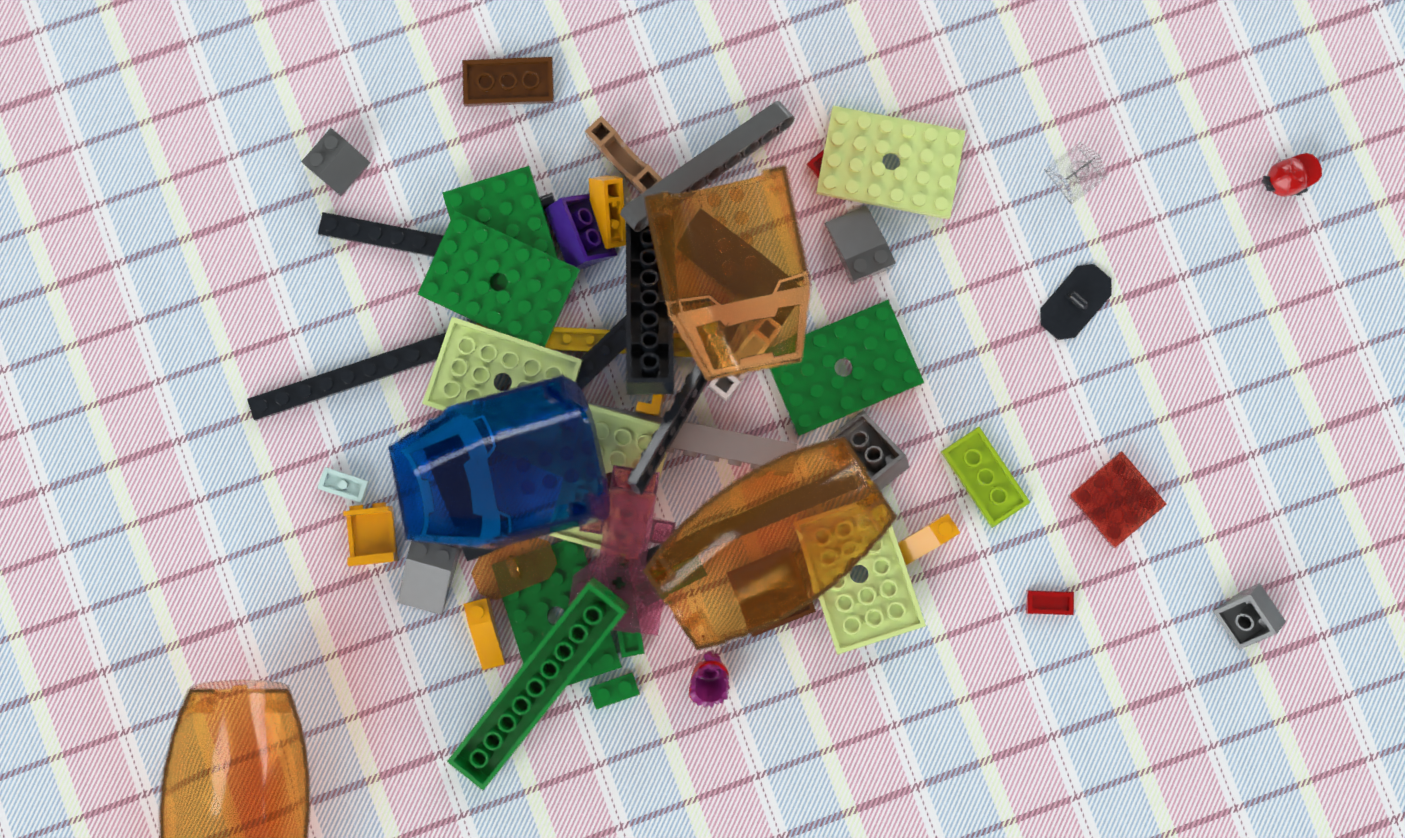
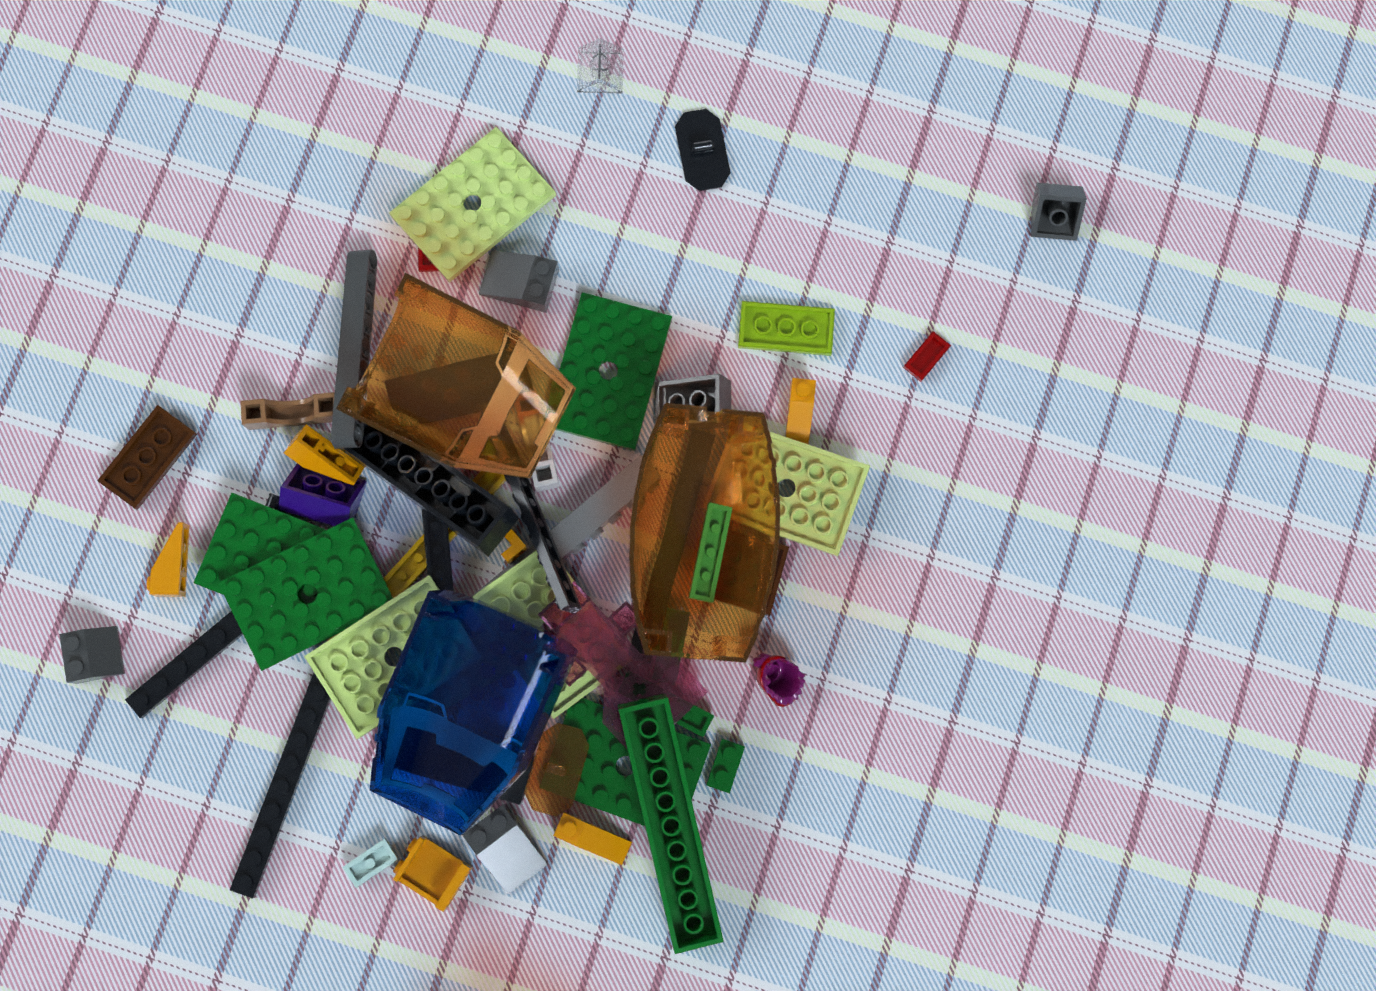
camera: 60 degrees left, 5 degrees down
(440, 166) = (170, 570): none -> light orange slope
(762, 556) = (710, 552): none -> bright green plate
(1117, 499) = (885, 240): clear red plate -> none

